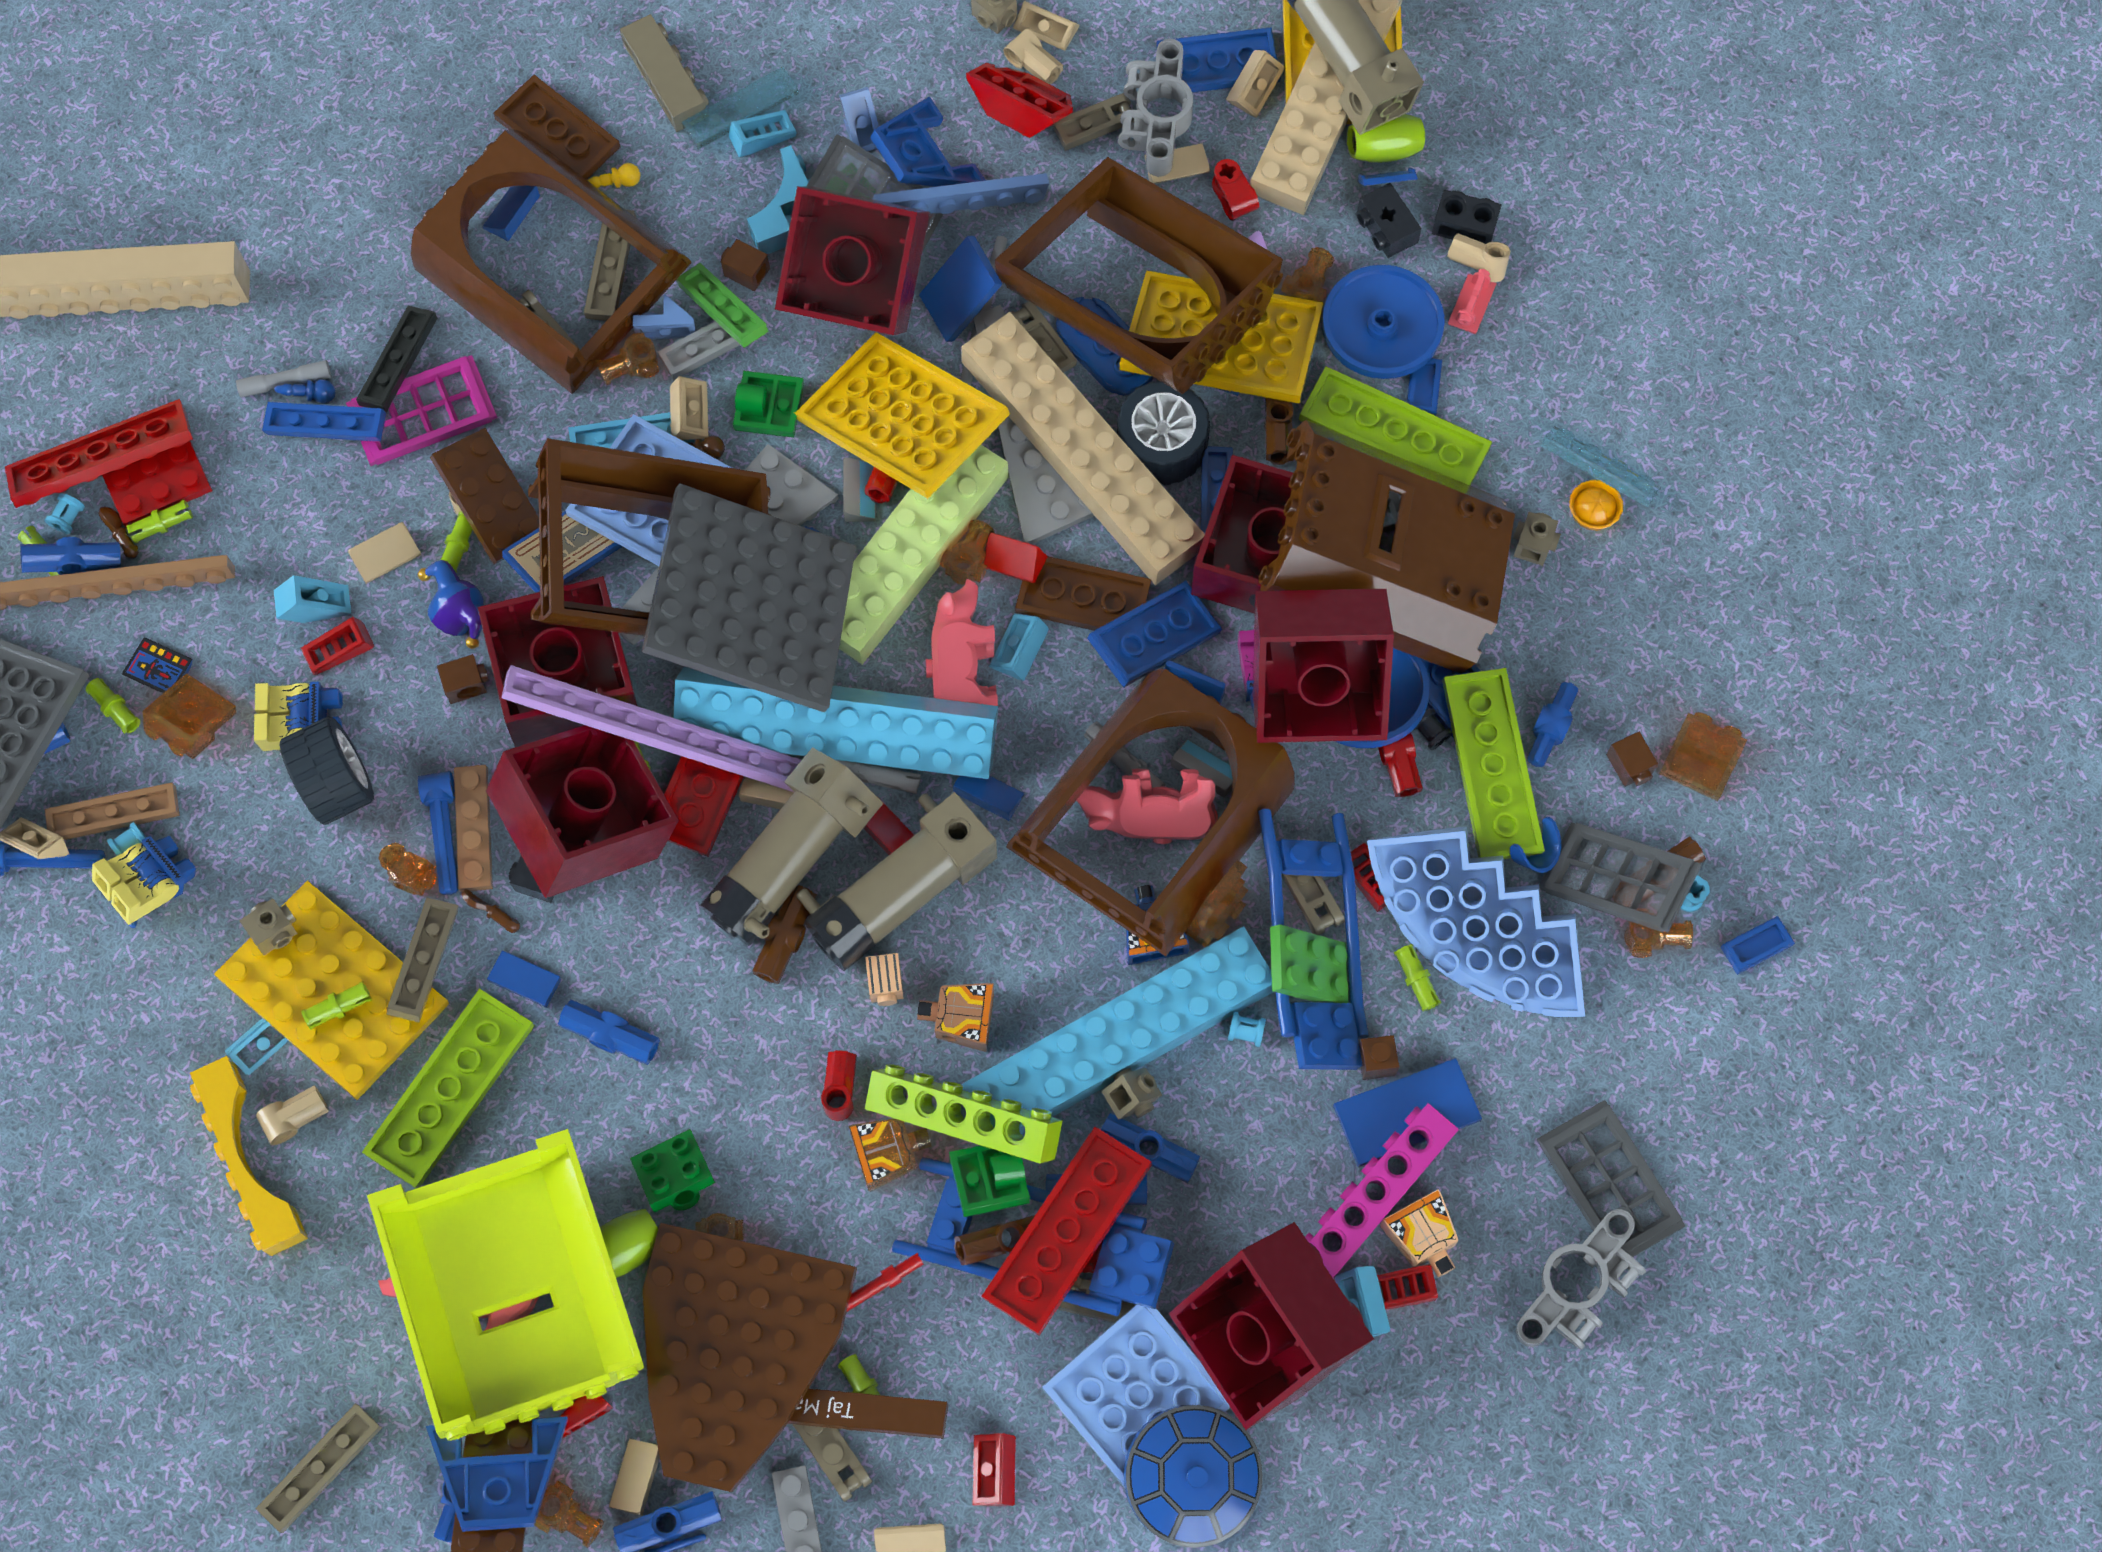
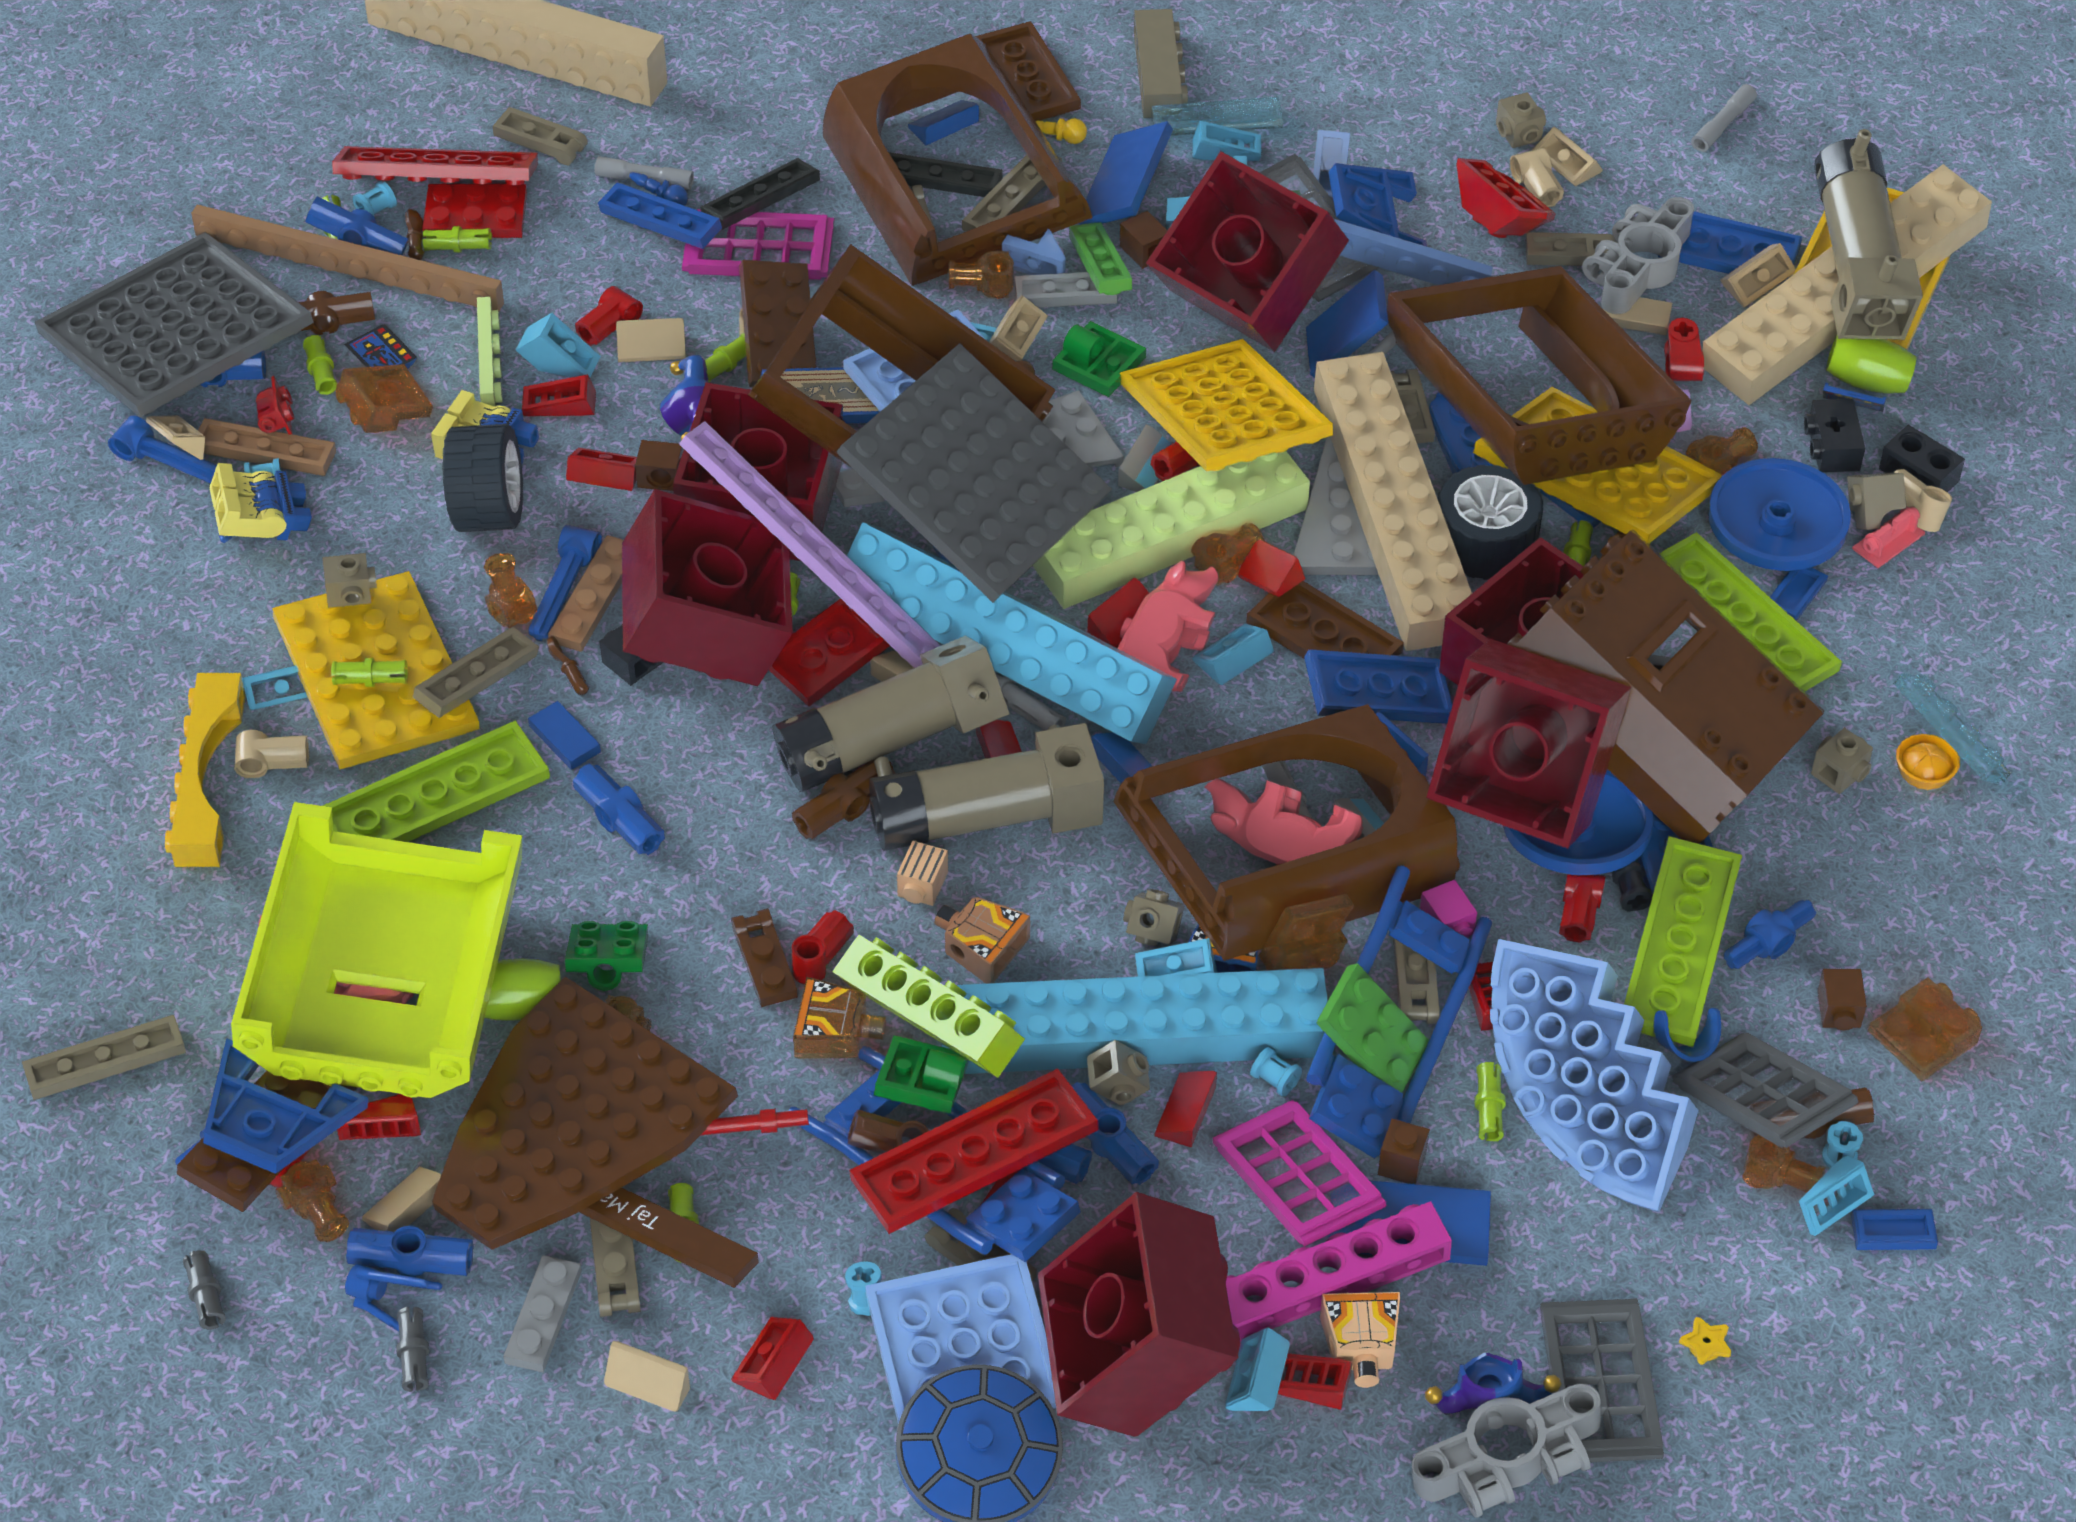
camera: 25 degrees right, 20 degrees down
(90, 648) = (332, 311): none -> reddish brown piece
(101, 773) = (274, 408): none -> red hinge
(170, 378) = (540, 135): none -> dark tan plate
(249, 621) = (487, 347): none -> yellowish green plate
(337, 537) = (601, 321): none -> red piece
(412, 699) = (601, 469): none -> red slope
(540, 267) = (947, 175): none -> pearl dark grey tile
(697, 204) = (1126, 173): none -> blue tile
(799, 1114) = (764, 958): none -> reddish brown plate
(913, 652) = (1108, 618): none -> red slope
(1035, 1370) = (869, 1274): none -> medium azure bush
(1087, 935) = (1166, 916): none -> dark tan brick
(1127, 973) = (1178, 959): none -> medium azure slope
(1193, 1092) = (1187, 1107): none -> red slope
(1241, 426) = (1579, 542): none -> lime pin
(1307, 820) = (1450, 907): none -> dark pink brick
(1310, 1115) = (1299, 1172): none -> dark pink piece
(1449, 272) = (1874, 497): none -> dark tan brick
(1540, 1232) = (1487, 1379): none -> piece
(1662, 1116) = (1706, 1351): none -> yellow plate
(1708, 938) = (1854, 1194): none -> medium azure slope

